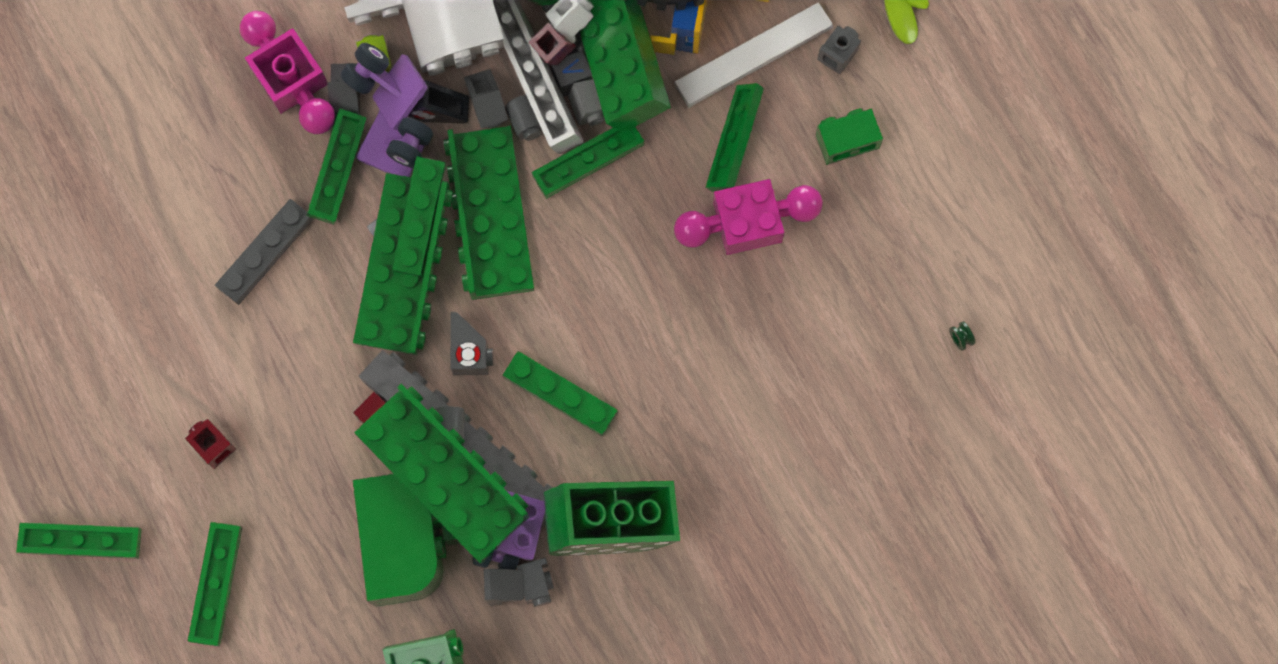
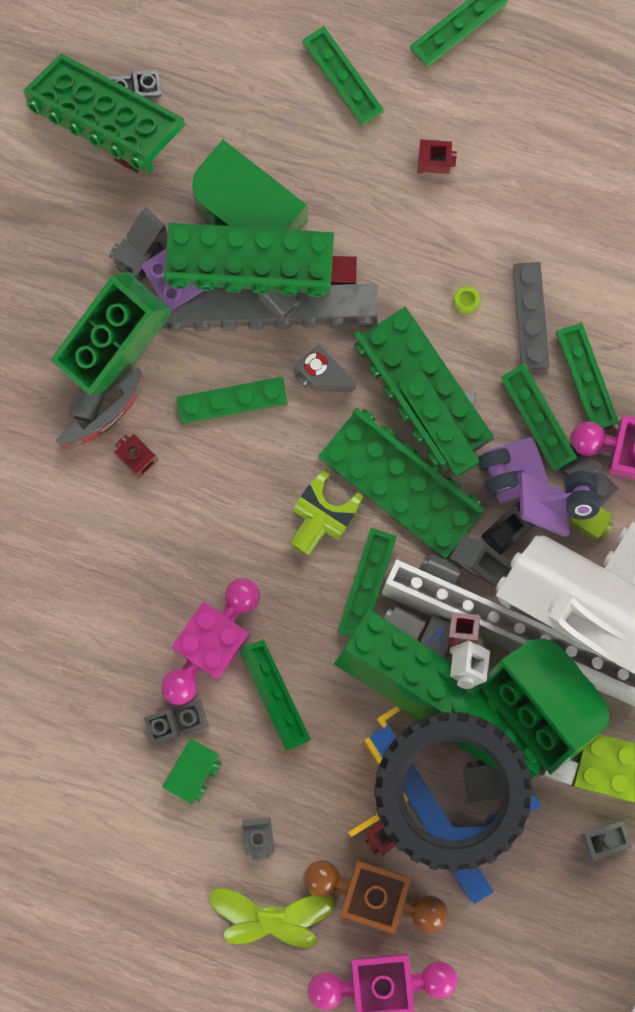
camera: 140 degrees right, 5 degrees up
(269, 166) = (587, 376): none -> green plate
(300, 309) = (466, 300): none -> lime tile
(575, 239) = (321, 516): none -> lime connector
(677, 402) = (142, 461): none -> dark red brick
(686, 490) = (85, 406): none -> dark grey brick
(710, 471) = (130, 389): none -> dark grey slope
(753, 55) = (319, 776): white tile -> none
(832, 186) = (176, 722): none -> dark grey slope

